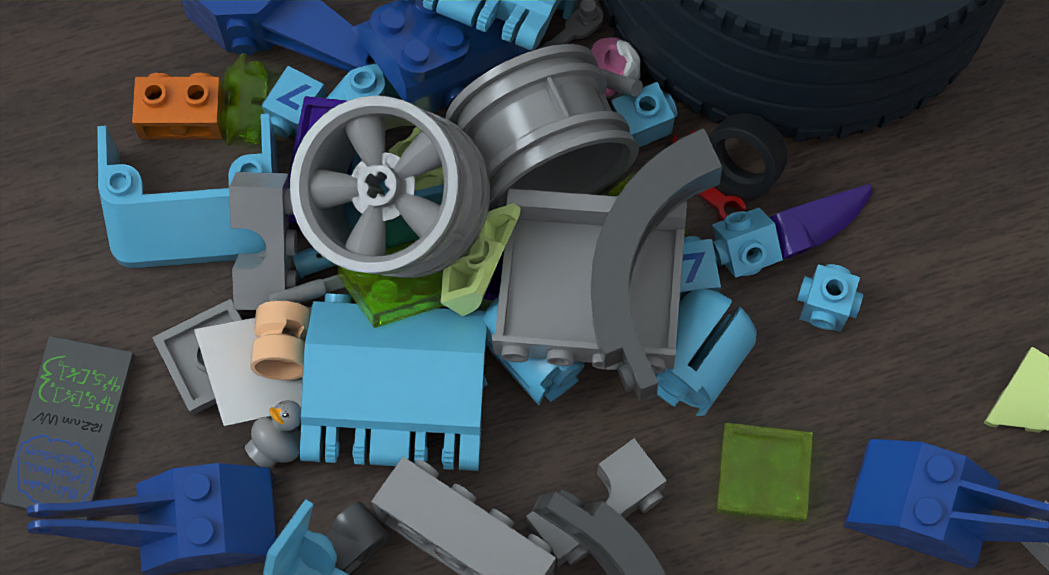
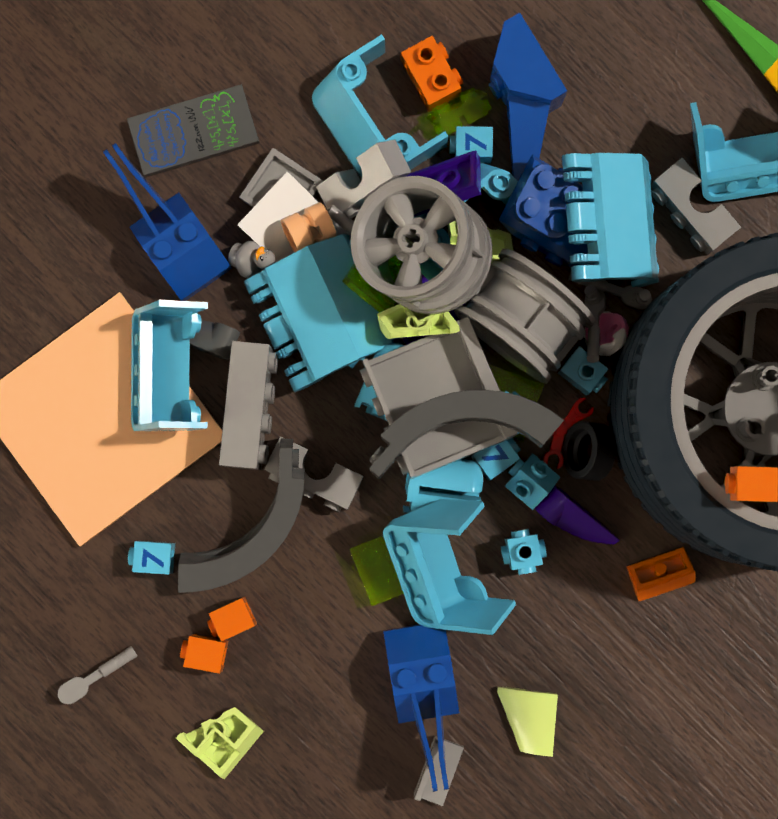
camera: 65 degrees right, 15 degrees up
(819, 427) = (430, 574): none -> medium azure windscreen
(935, 158) = (661, 574): none -> orange slope

